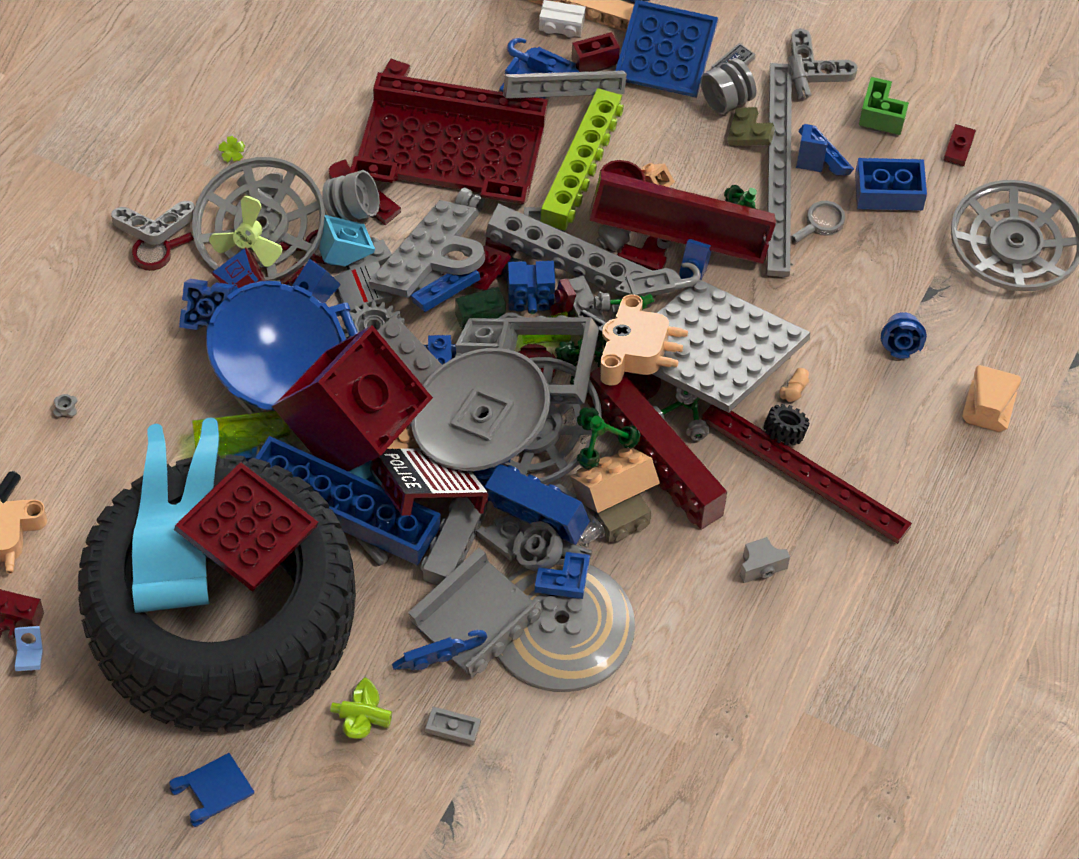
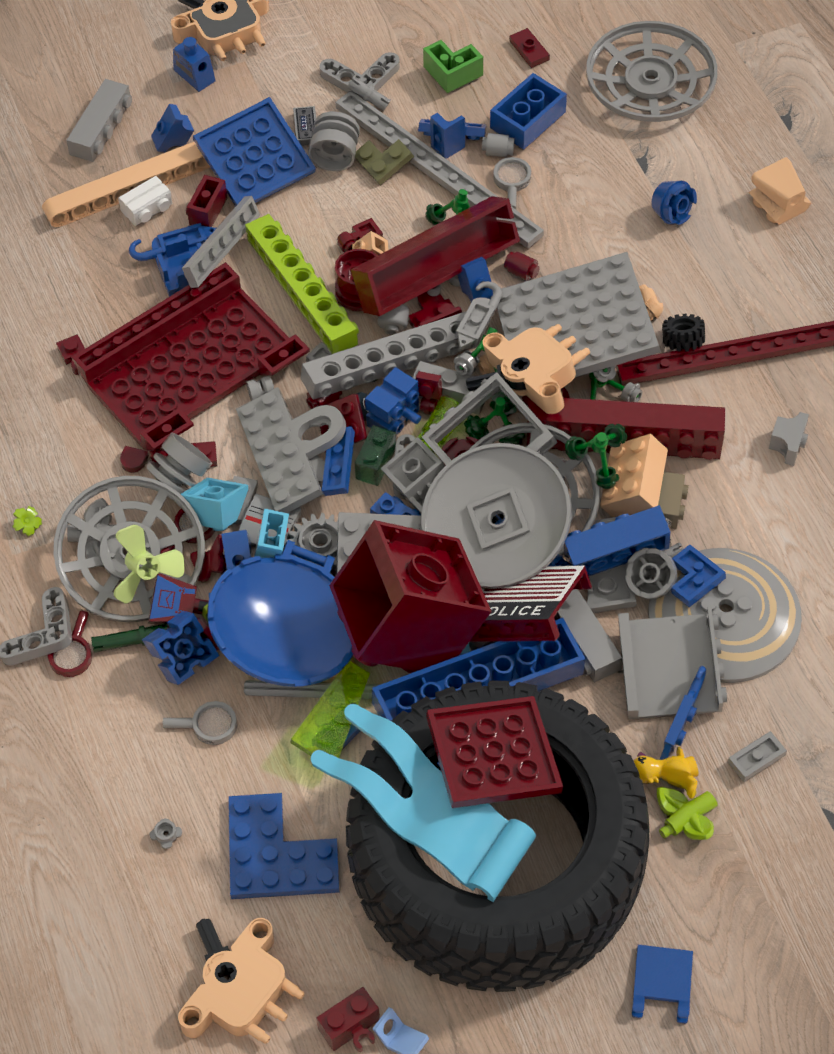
camera: 45 degrees left, 0 degrees up
(98, 472) = (265, 863): none -> blue plate
(173, 371) = (212, 723): none -> piece
(188, 269) = (124, 638): none -> dark green pin
(337, 292) = (266, 545): none -> medium azure torso
(389, 677) = (674, 770): none -> yellow animal
(675, 164) = (359, 230): none -> dark red plate
(743, 281) = (521, 265): none -> dark red brick
(841, 189) = (498, 145): none -> light grey brick

